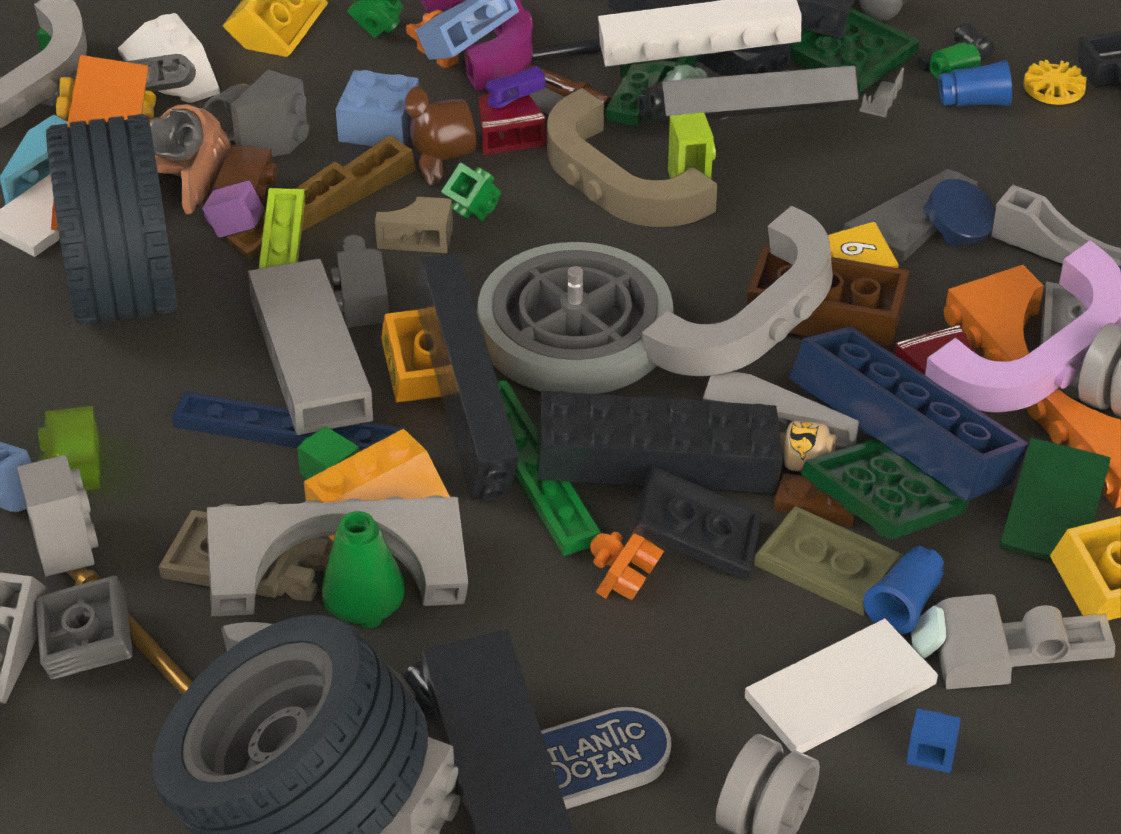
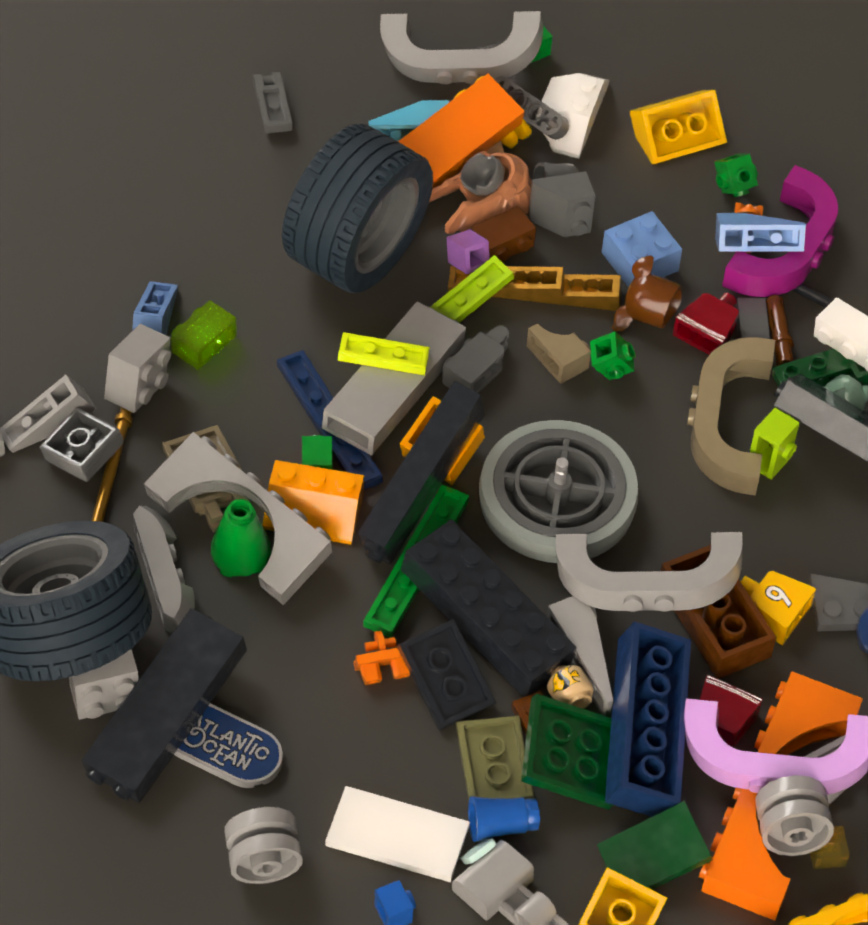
camera: 45 degrees right, 10 degrees up
(283, 324) = (383, 353): none -> neon yellow tile
(512, 87) = (726, 304): dark purple bar -> none

